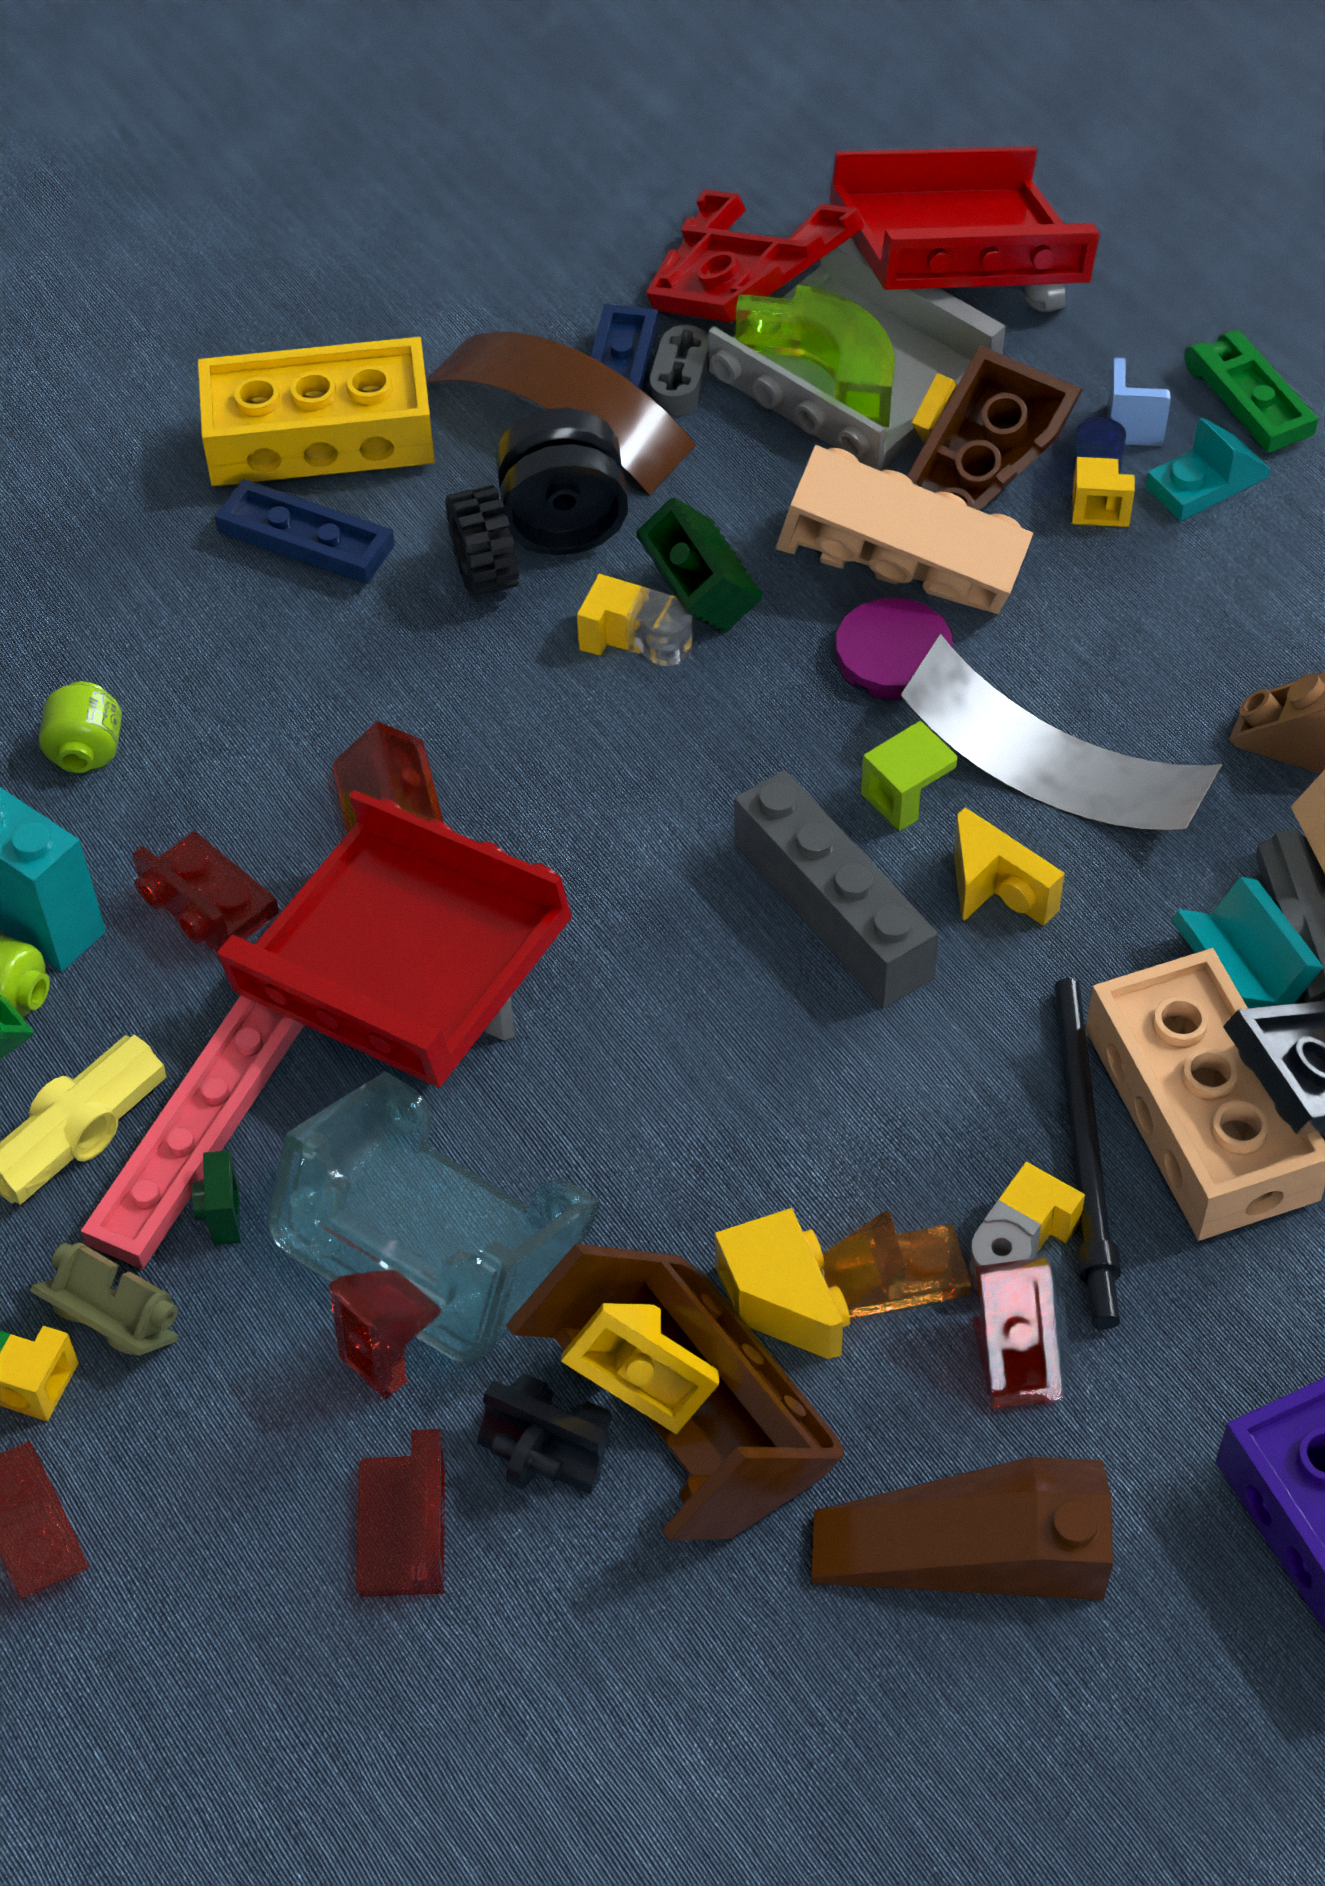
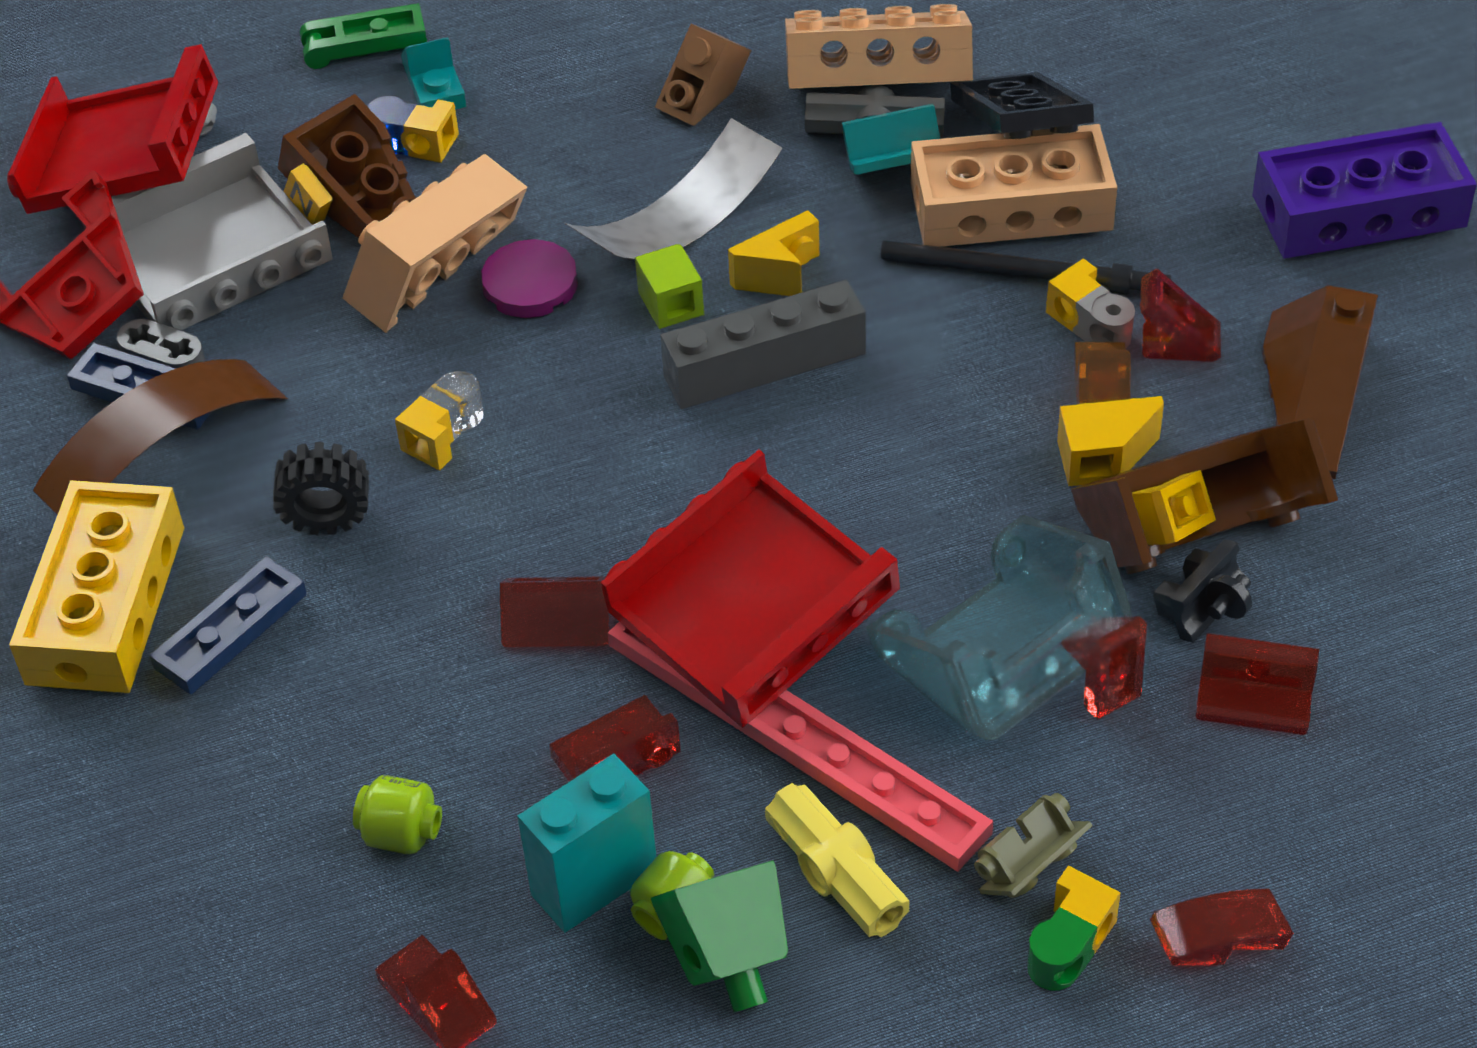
camera: 75 degrees left, 5 degrees down
(218, 1197) = (947, 761): dark green plate -> none
(561, 481) = (280, 414): black wheel -> none
(699, 565) = (409, 359): dark green brick -> none
(831, 334) = (209, 229): clear neon green arch -> none
(1138, 410) = (367, 85): light blue panel -> none

